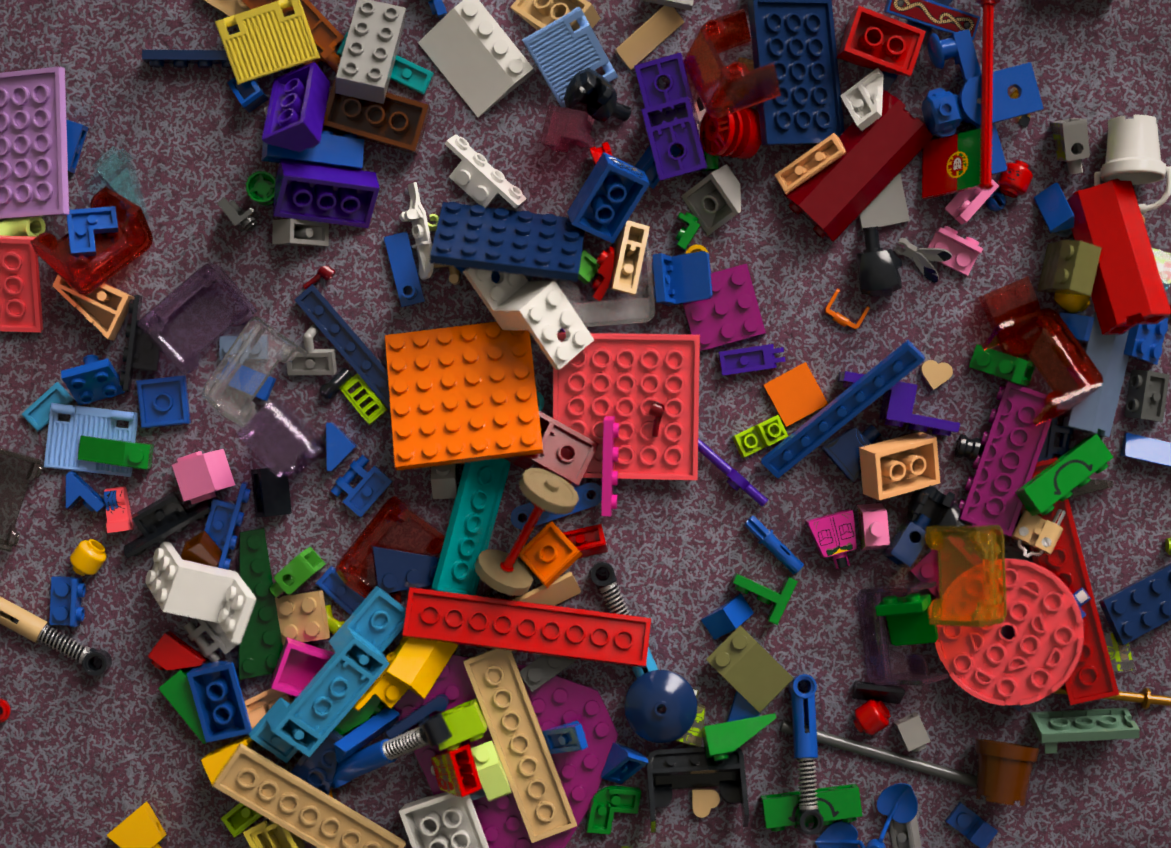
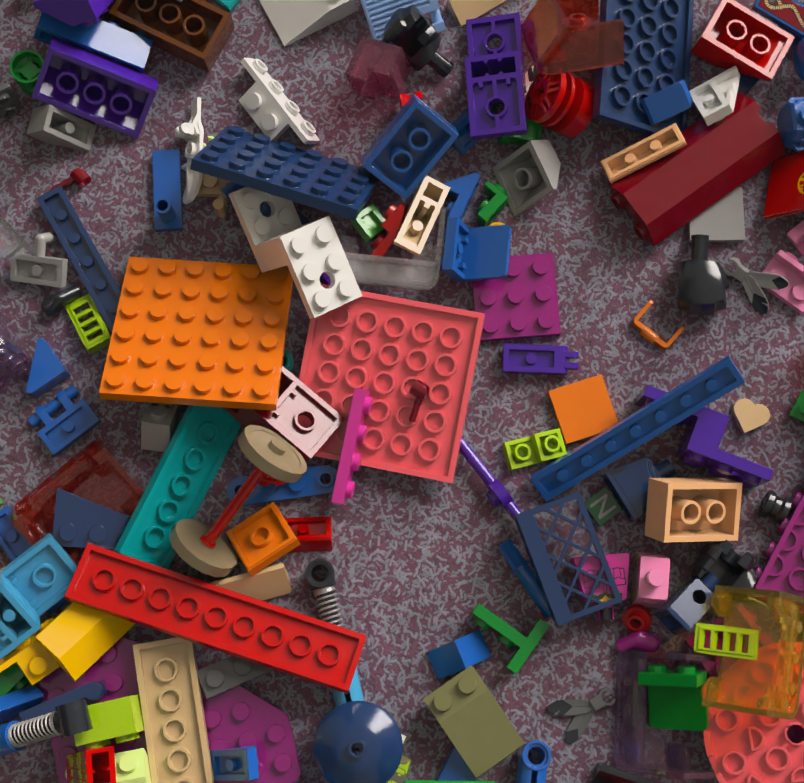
camera: 10 degrees right, 10 degrees down
(660, 224) = (462, 192): none -> blue slope
(784, 535) = (544, 569): none -> dark blue fence
(824, 113) = (667, 102): none -> blue slope
(824, 473) = (602, 506): none -> dark green tile
(835, 642) = (581, 709): none -> dark grey piece
(868, 560) = (637, 612): none -> red plate
(872, 578) = (639, 640): none -> magenta arm
(920, 569) = (699, 641): none -> lime slope

